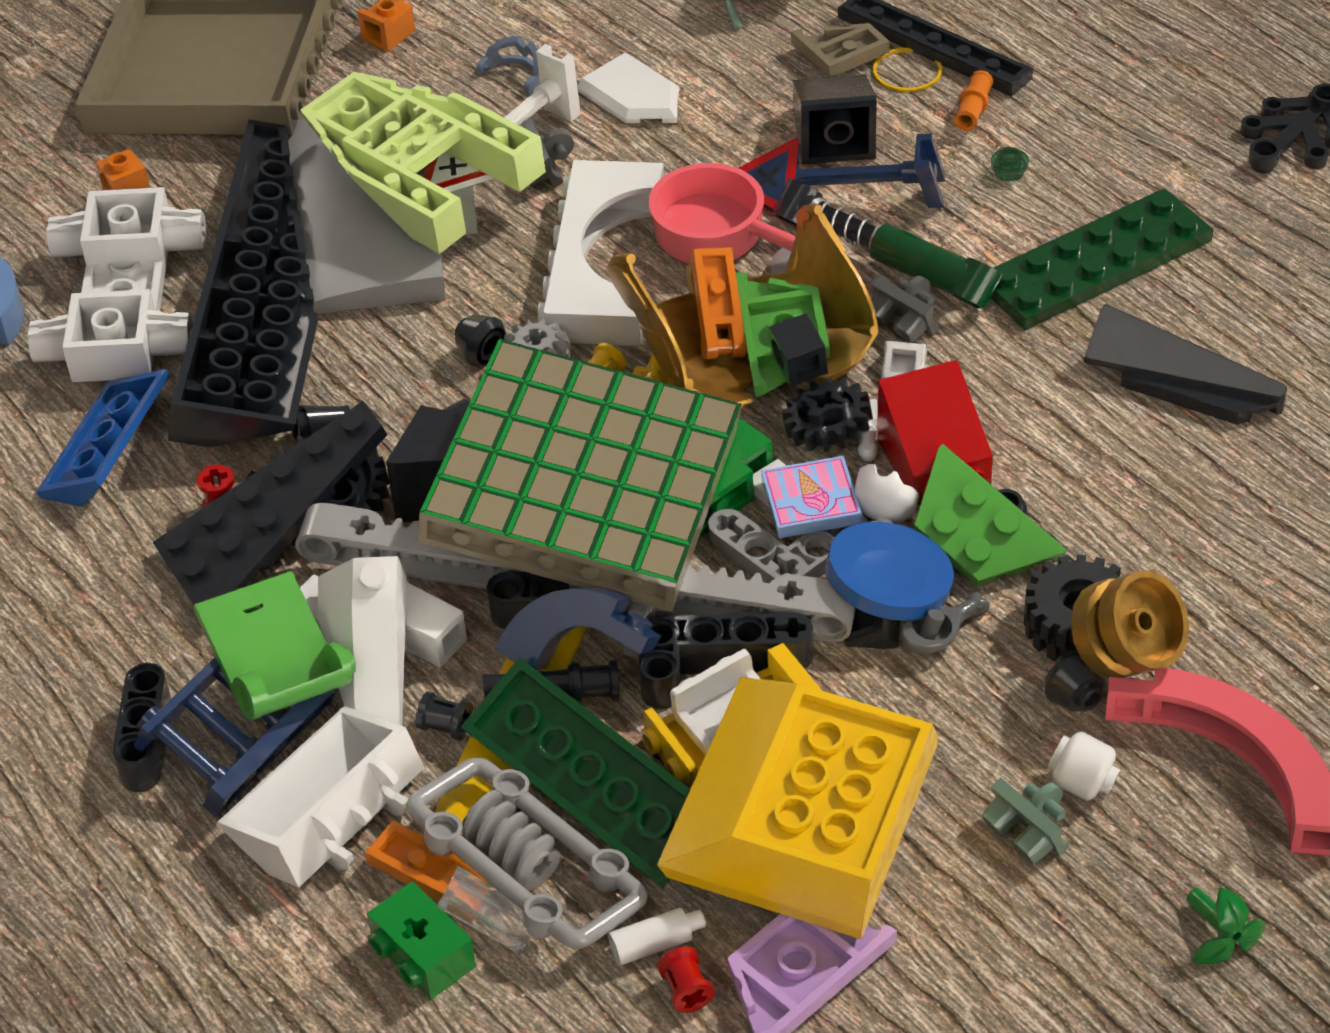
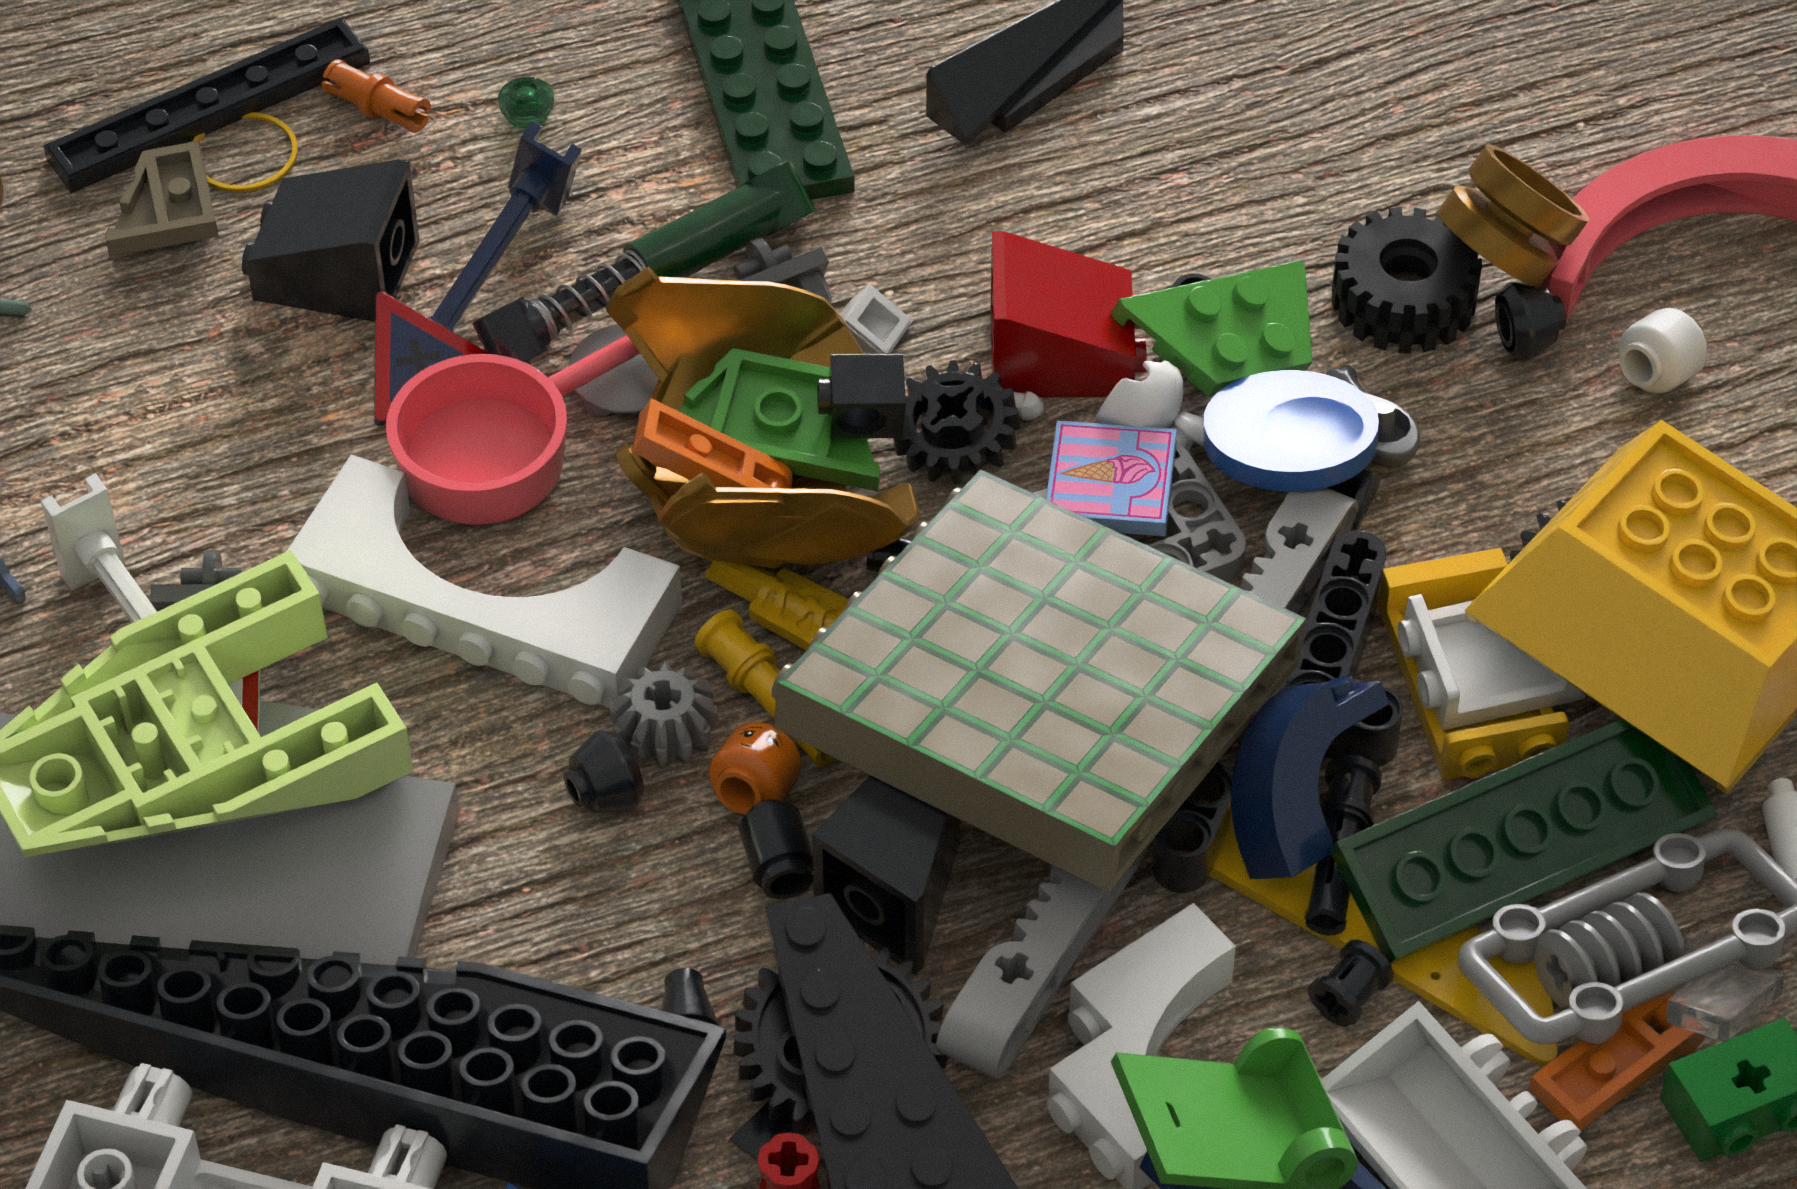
camera: 75 degrees left, 5 degrees up
(365, 611) = (1199, 1001): white wedge -> none
(631, 91) = (130, 453): white tile -> none
(1040, 832) = (1720, 420): sand green hips -> none

